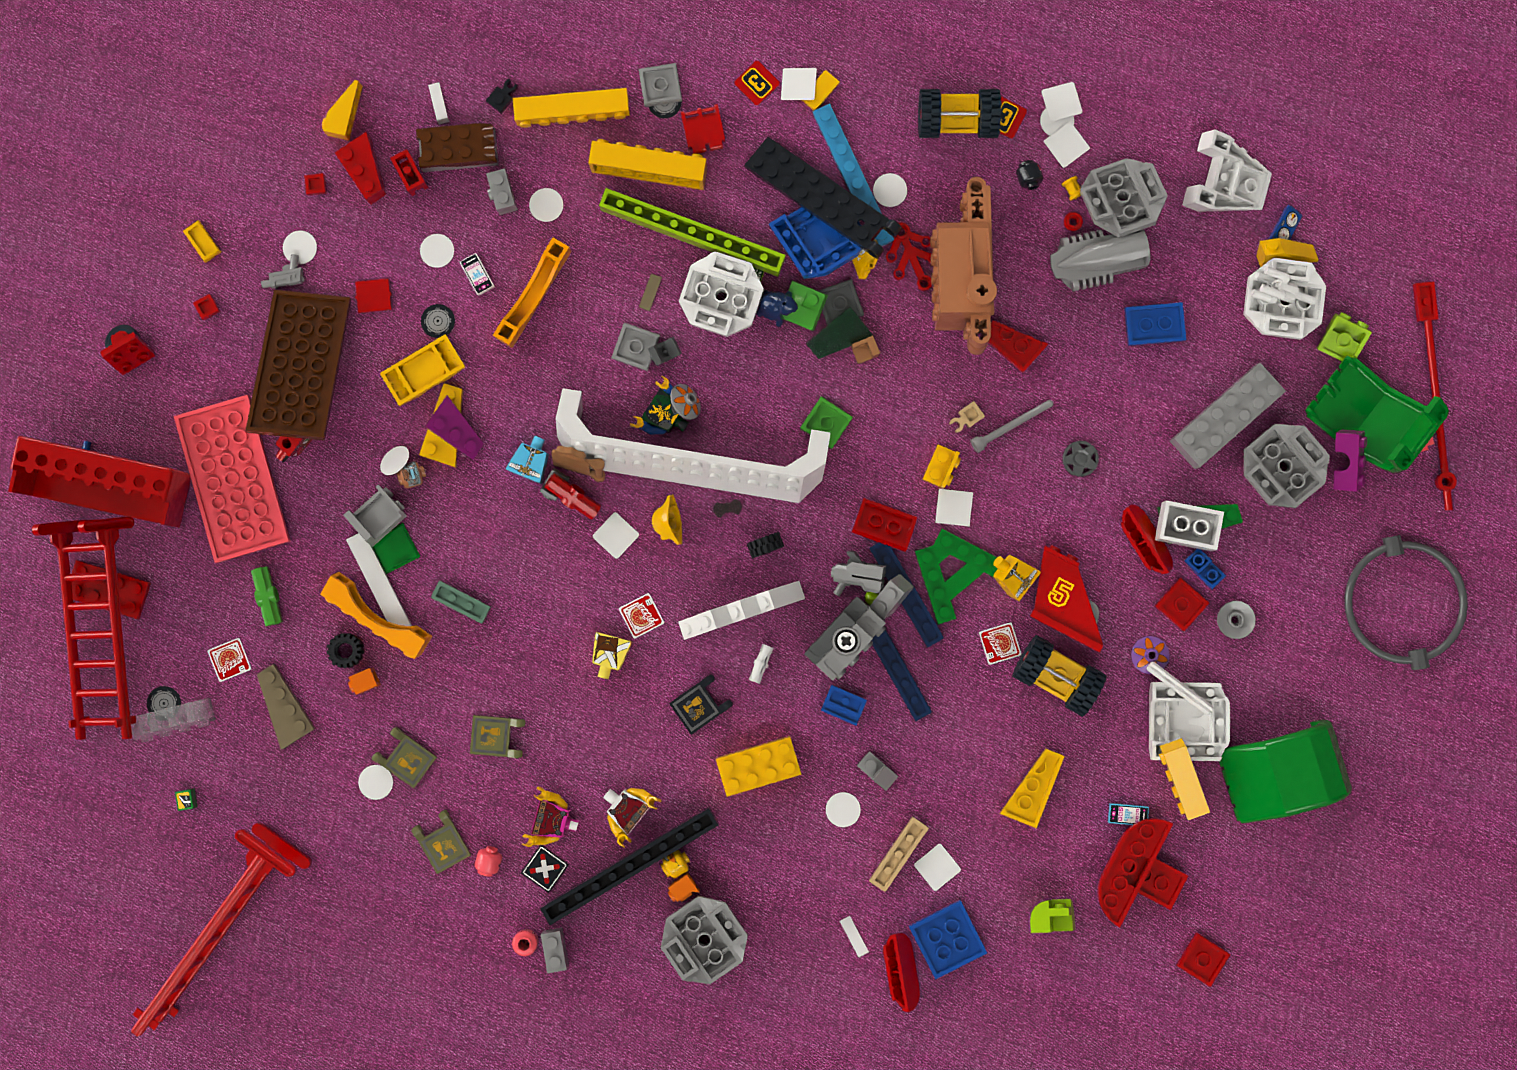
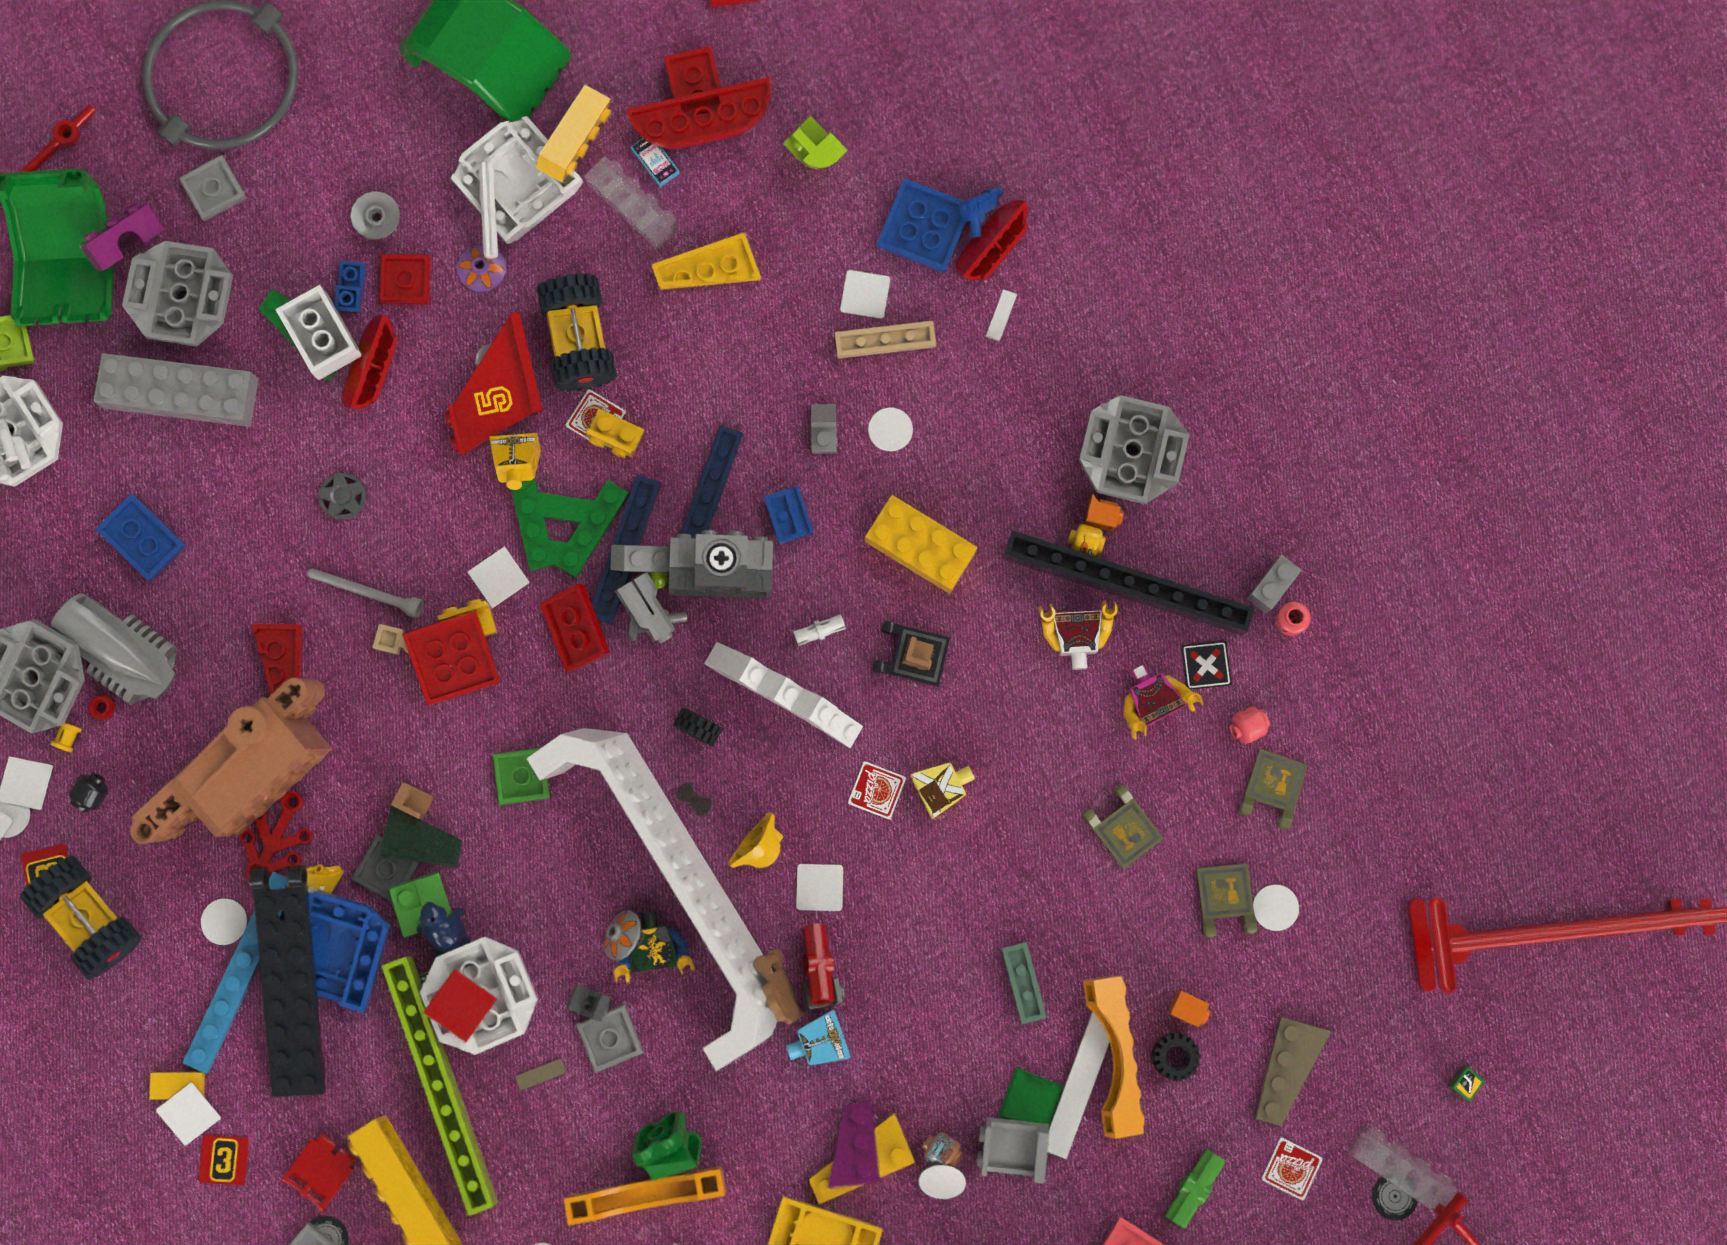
camera: 135 degrees left, 5 degrees down
(547, 327) = (667, 1147): none -> green piece
(696, 707) = (918, 654): none -> medium nougat panel
(723, 278) = (460, 1005): none -> red tile
(928, 440) = (451, 657): none -> red plate
(931, 979) = (975, 207): none -> blue piece
(980, 646) = (615, 434): none -> yellow bracket
(1113, 776) = (631, 202): none -> clear brick
(1337, 539) = (212, 188): none -> light grey tile

